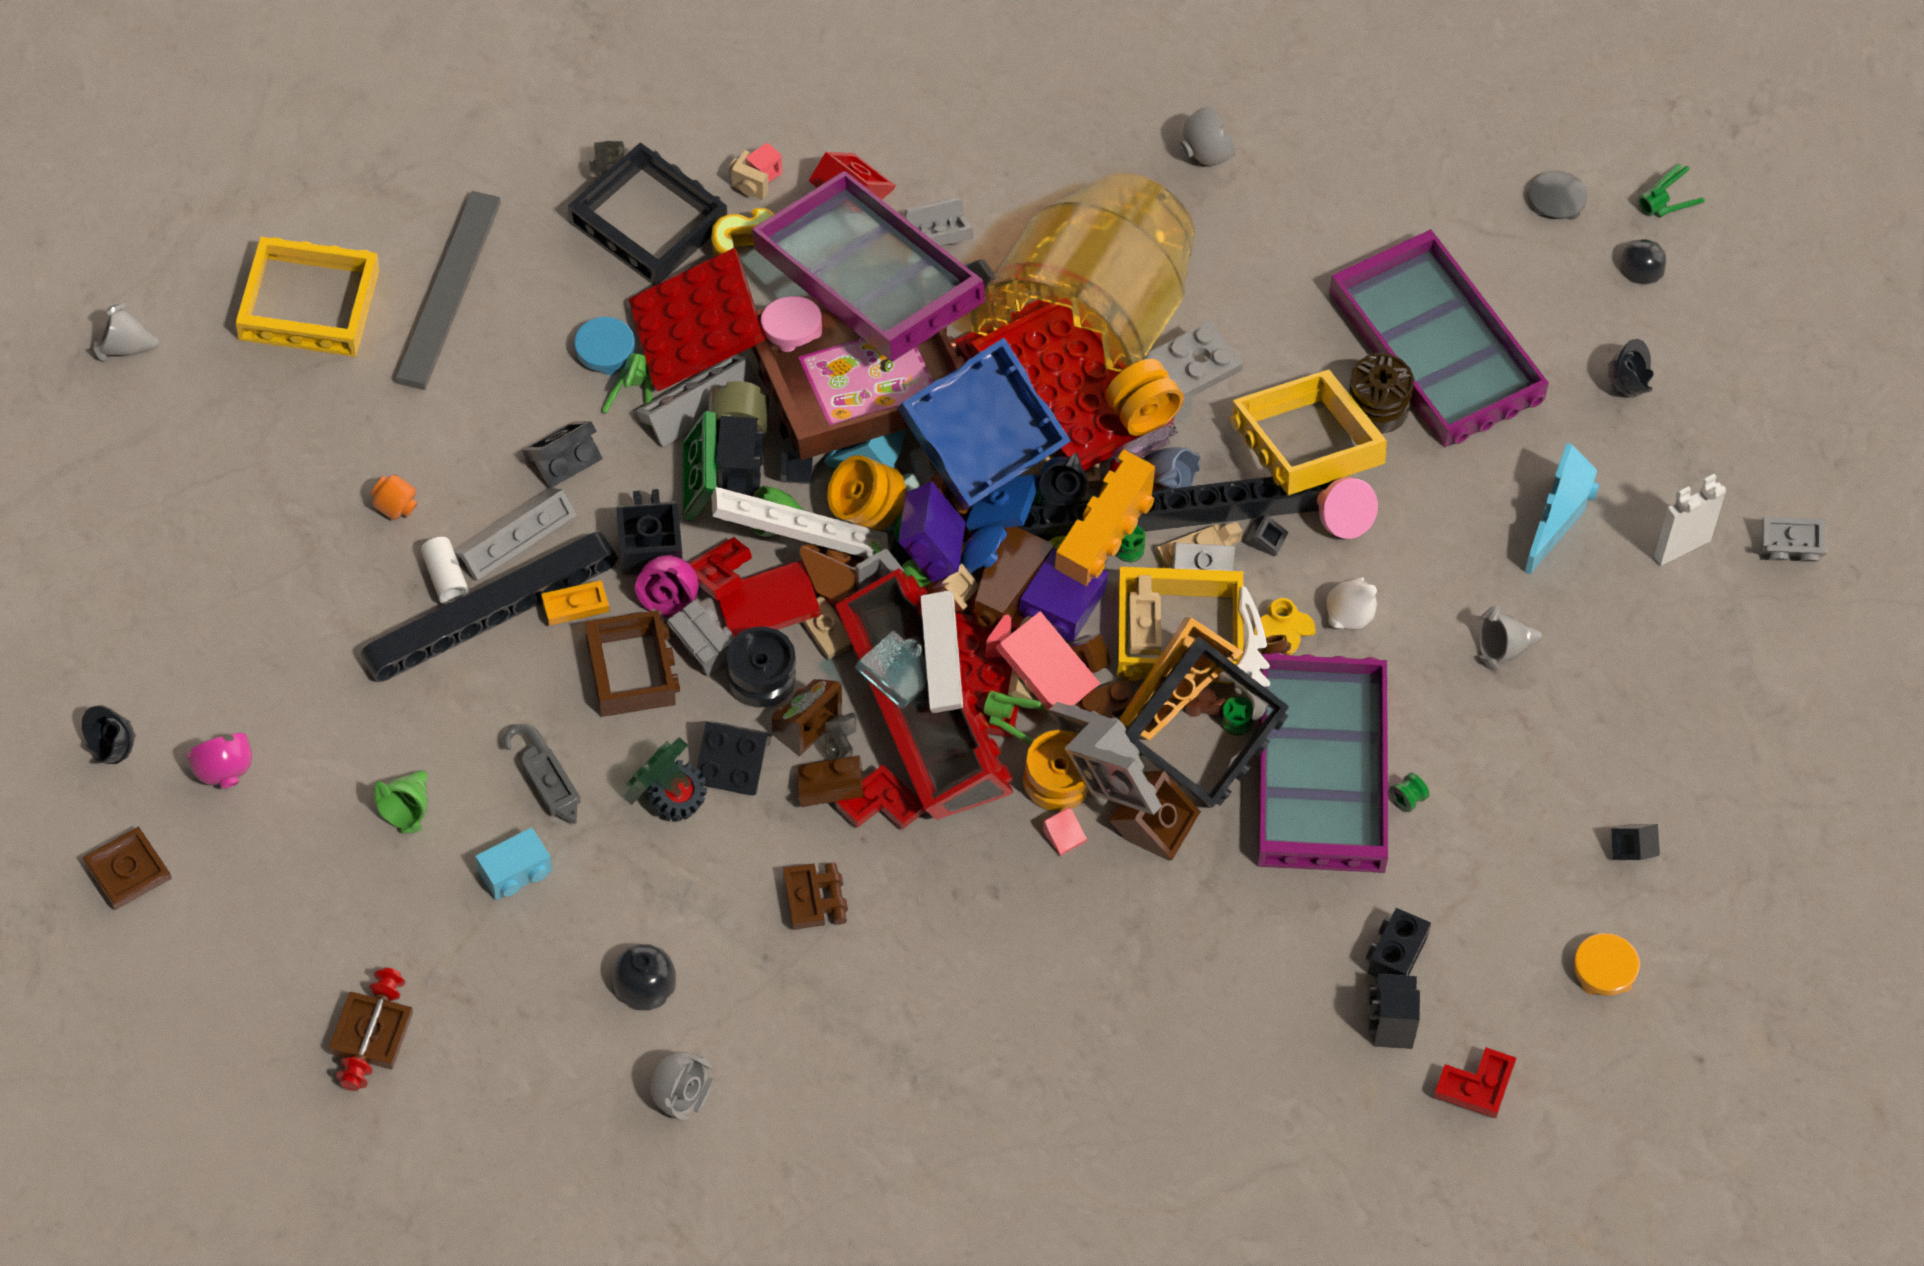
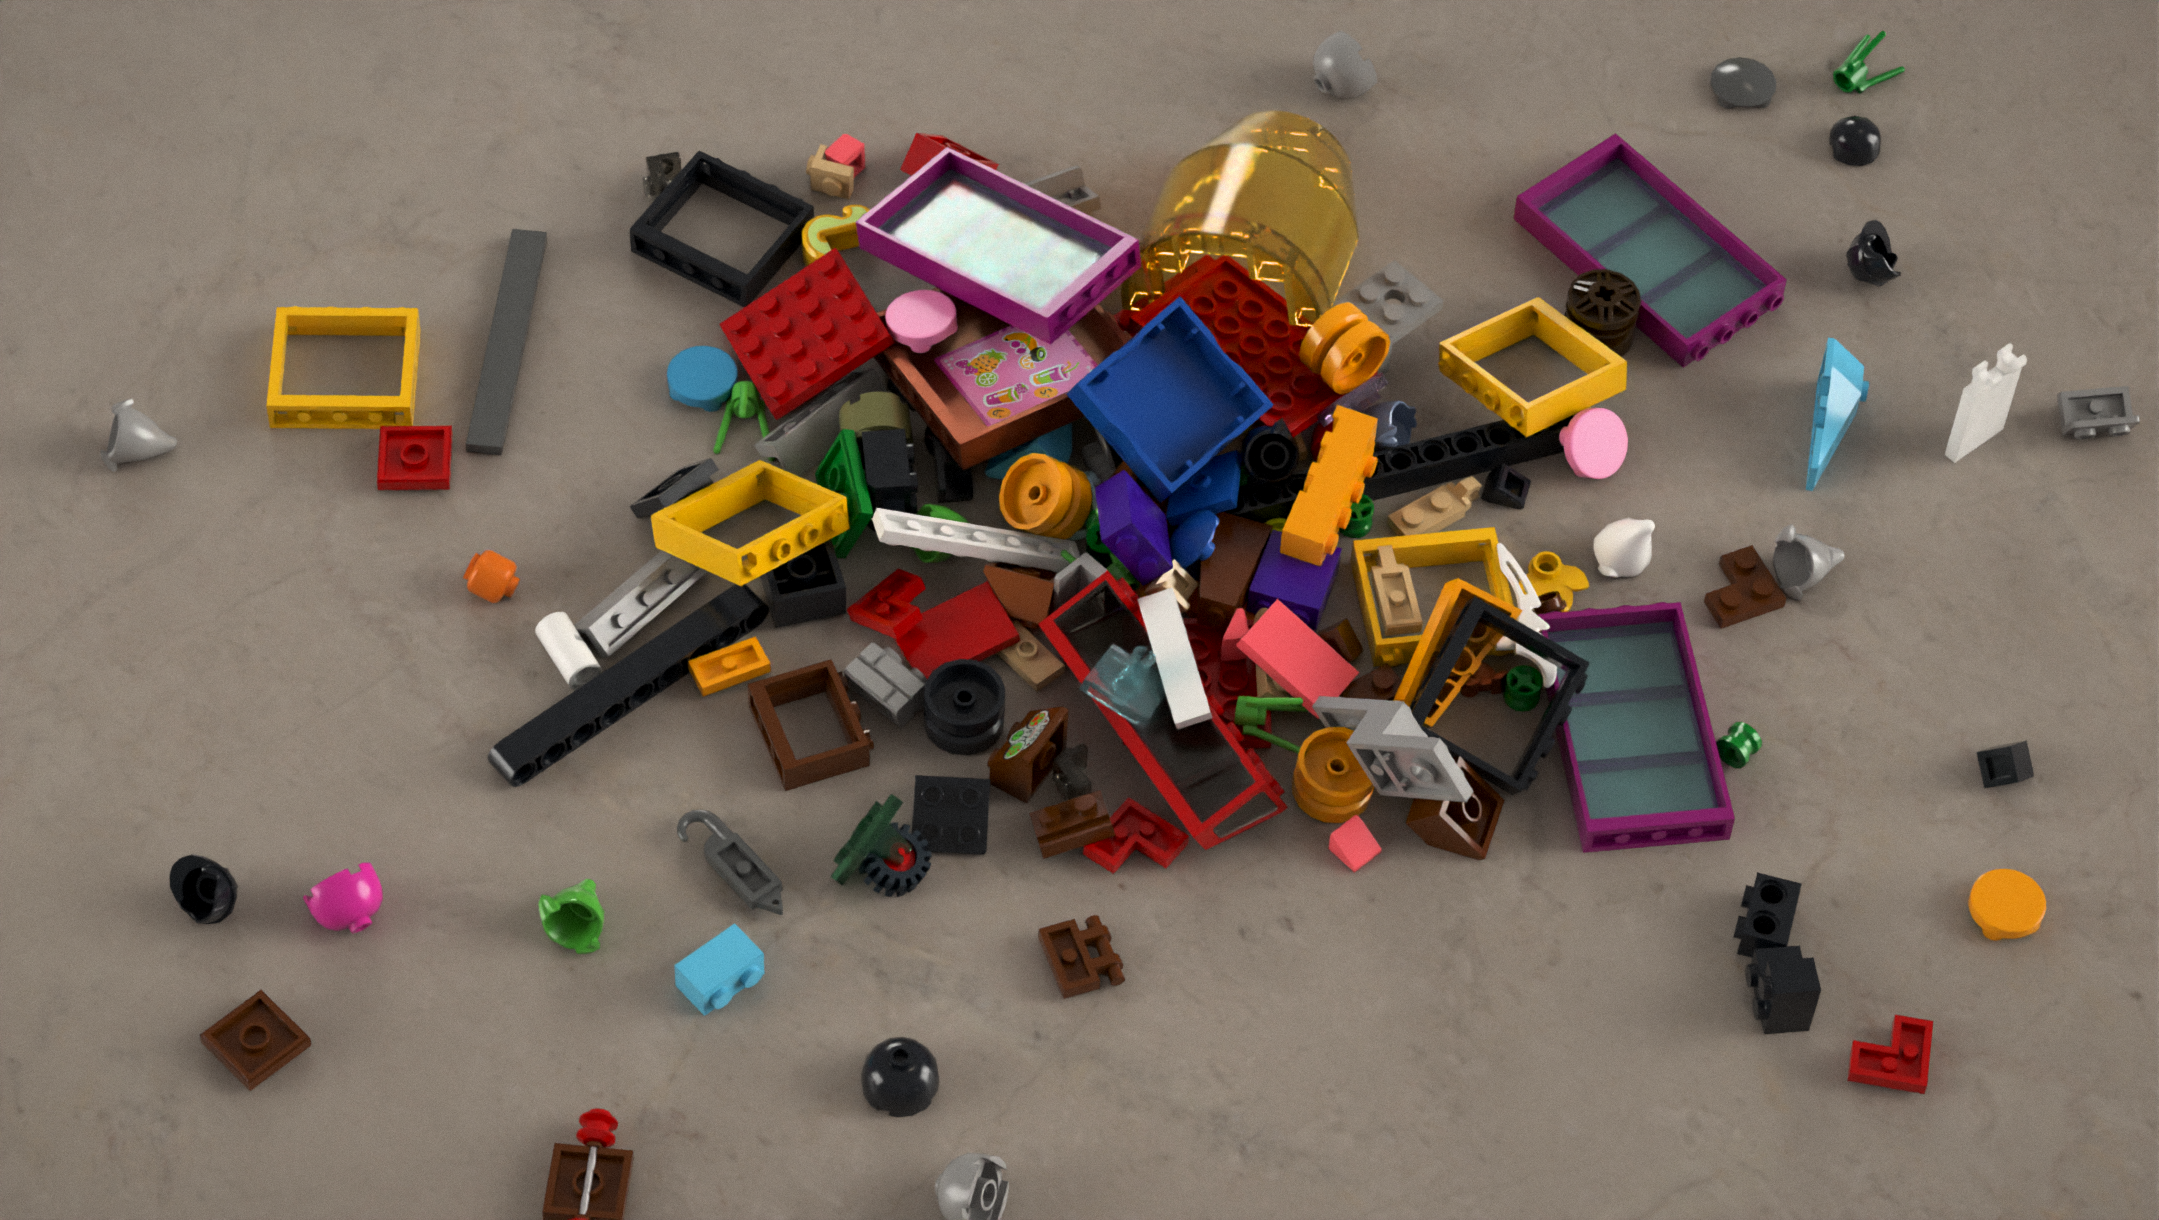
camera: 10 degrees left, 5 degrees down
(351, 383) = (414, 458): none -> red plate
(604, 454) = (680, 525): none -> yellow window
(667, 585) = (835, 630): dark pink cylinder -> none
(1202, 556) = (1443, 517): light grey plate -> none
(1454, 659) = (1750, 592): none -> reddish brown plate

